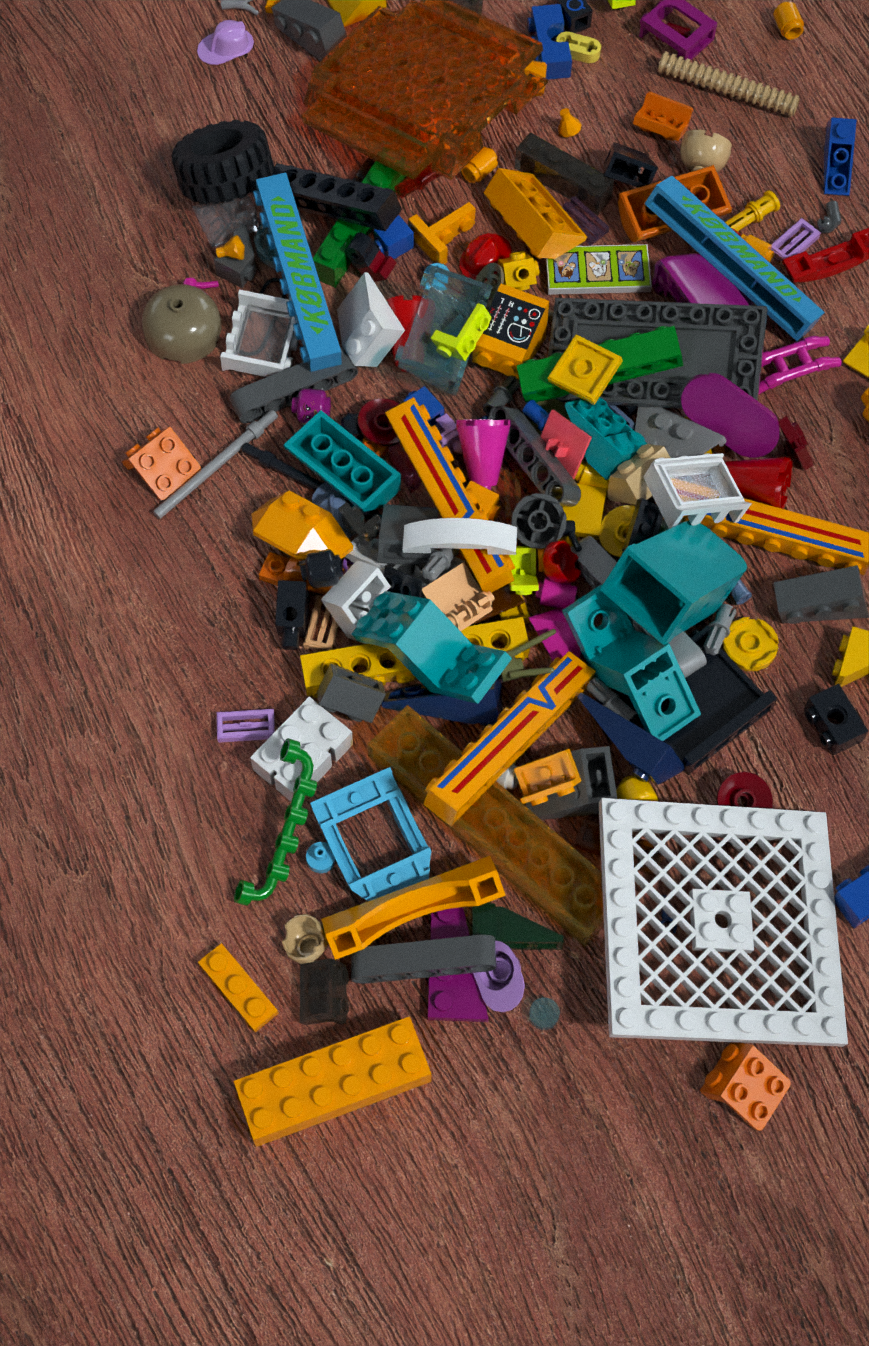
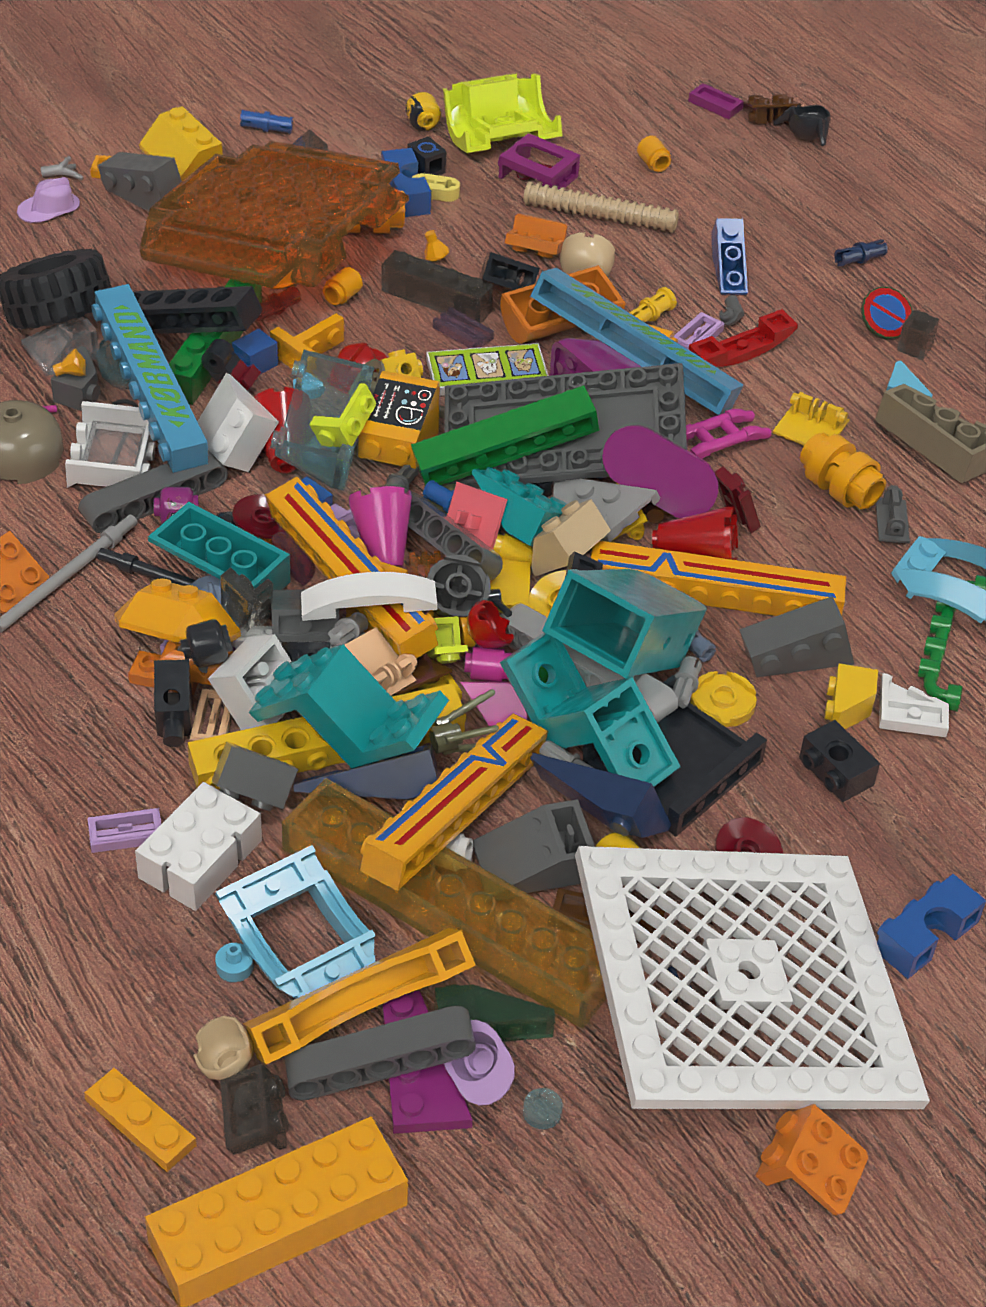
camera: 10 degrees left, 20 degrees down
(285, 840) = (188, 941): green bar -> none
(533, 213) = (407, 321): light orange slope -> none
(547, 776) = (508, 837): light orange bracket -> none
(585, 369) = (489, 437): yellow tile -> none
(694, 488) = (636, 530): white window -> none

